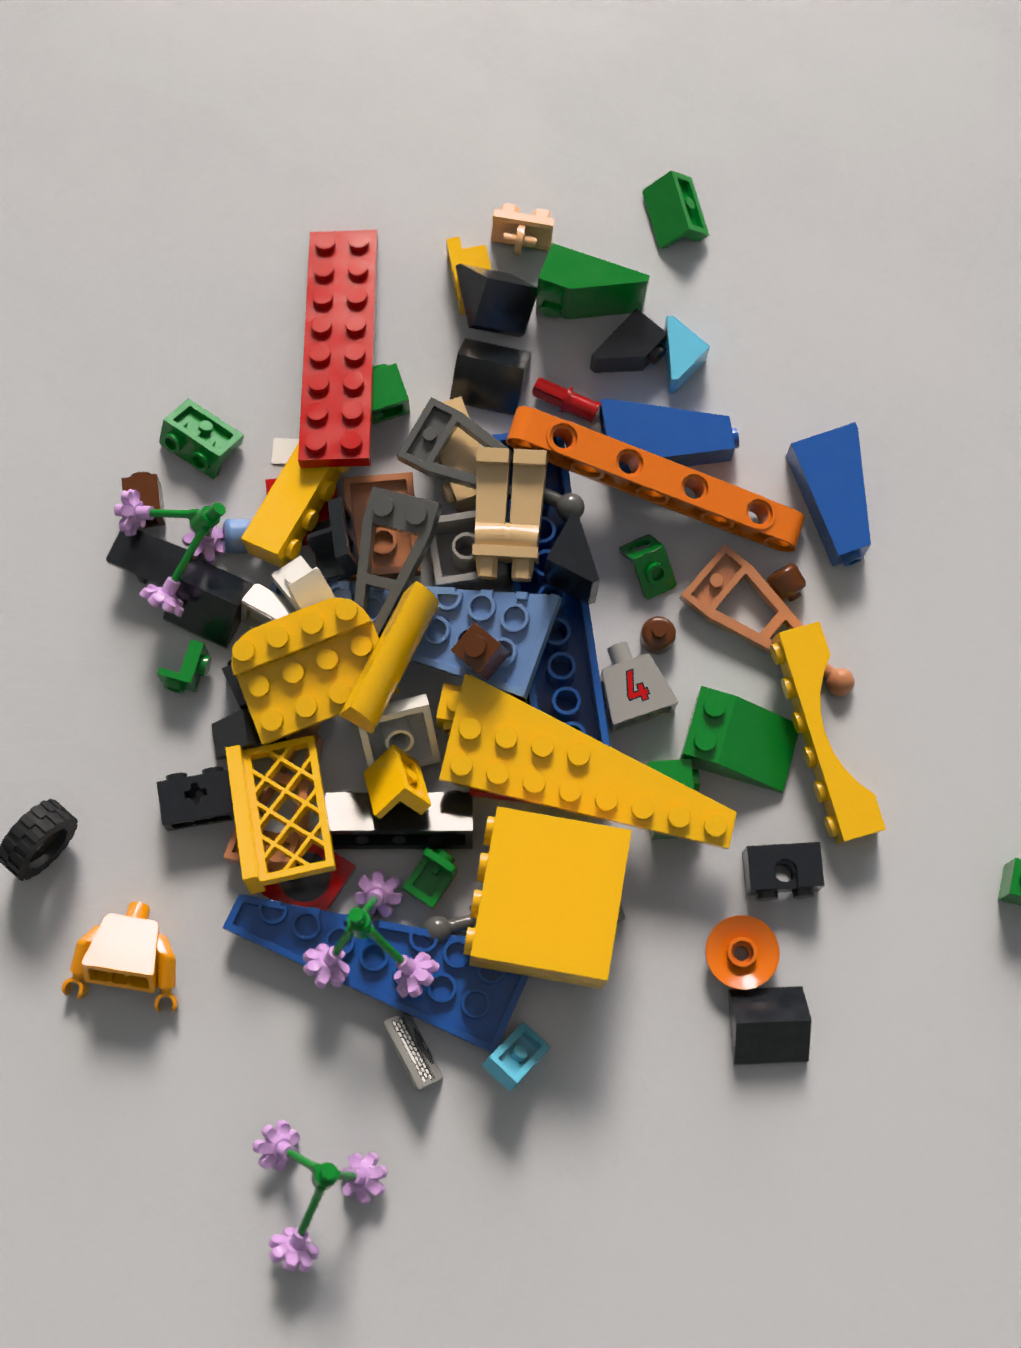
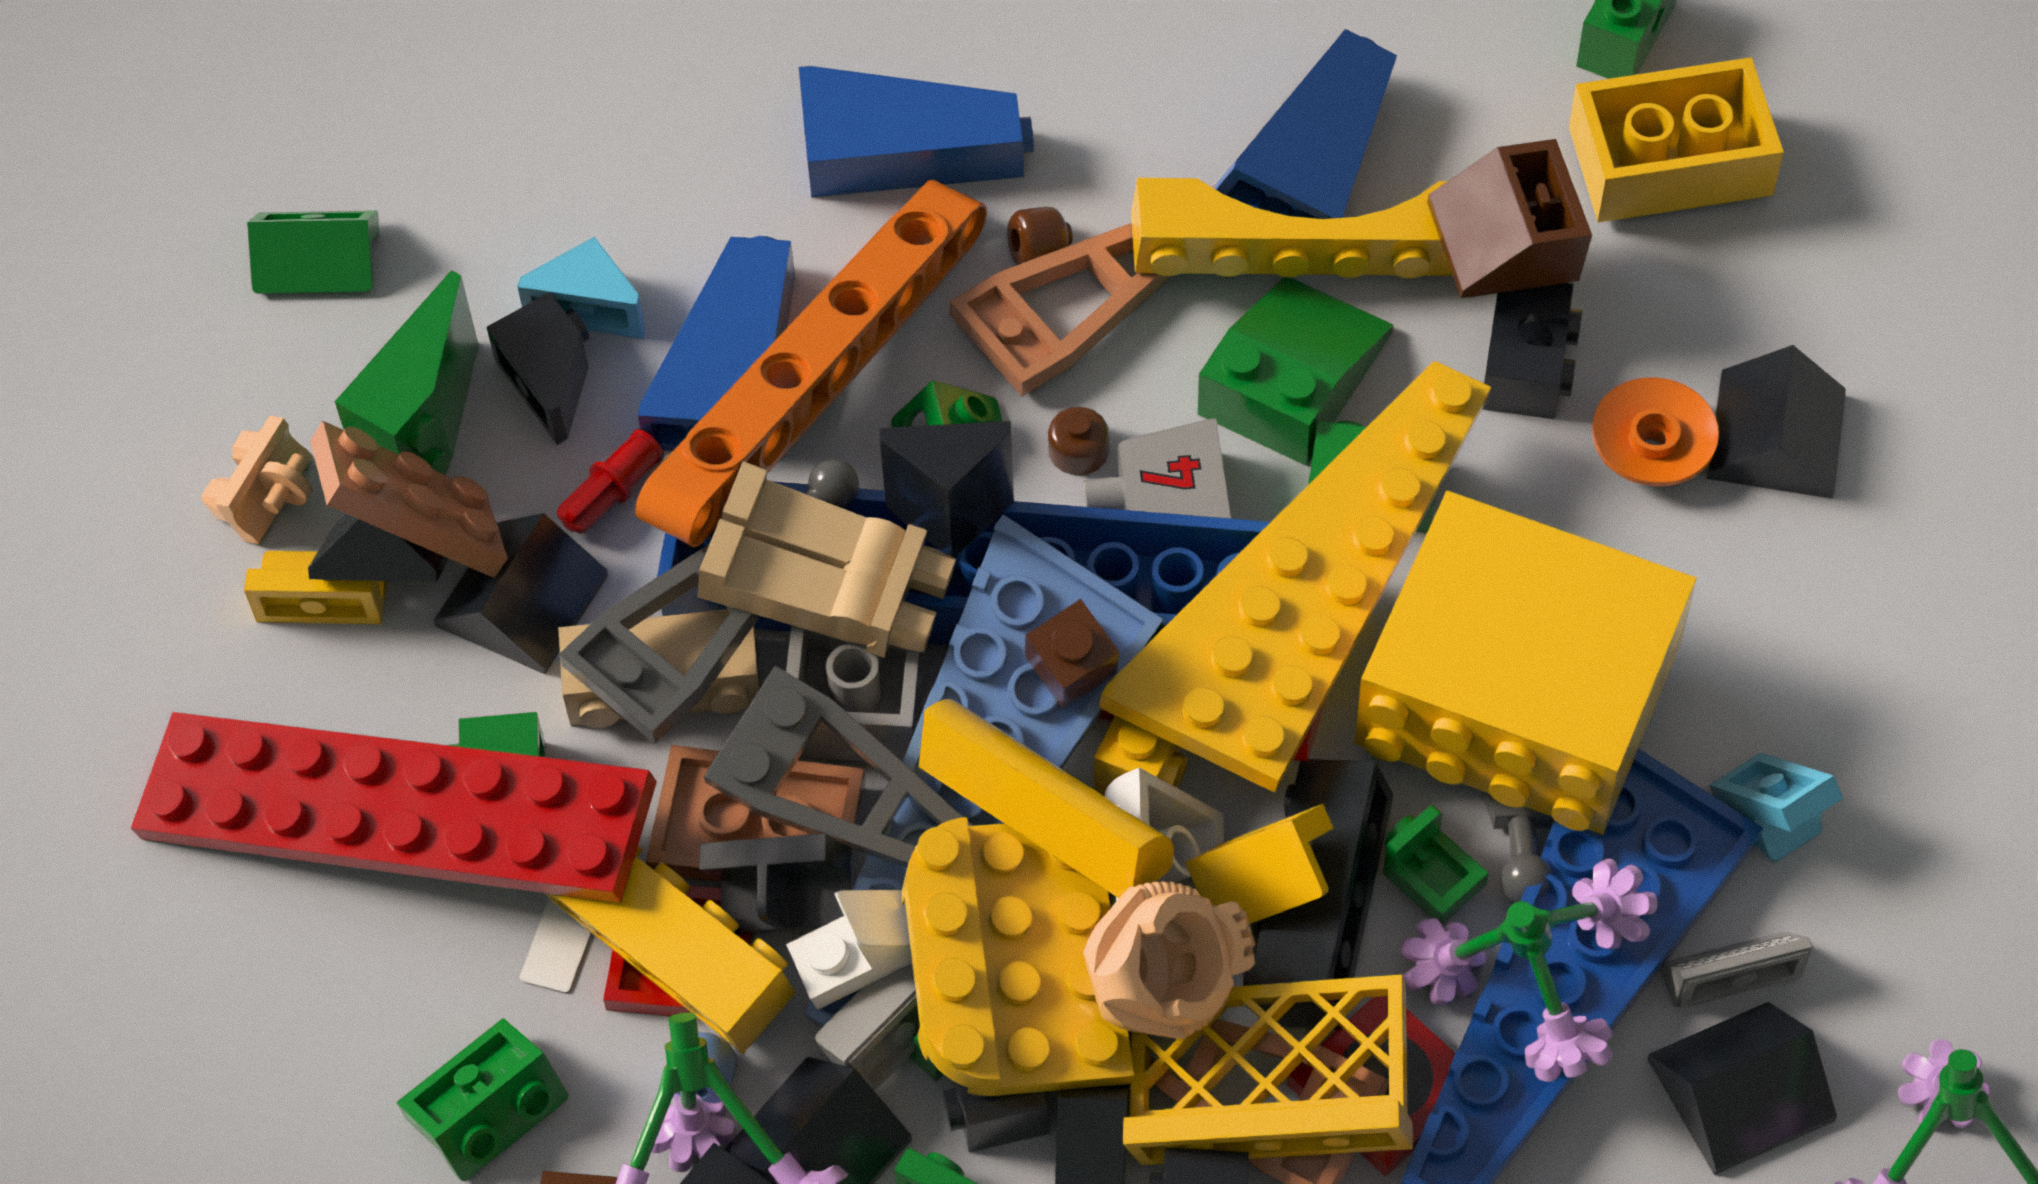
camera: 70 degrees left, 15 degrees down
(313, 742) = (1167, 959): none -> light nougat helmet
(342, 1067) = (1746, 1085): none -> black slope
(506, 297) = (408, 498): none -> nougat plate
(843, 836) = (1512, 221): none -> reddish brown slope
(883, 717) = (1317, 138): none -> blue slope
(950, 928) = (1675, 139): none -> yellow brick

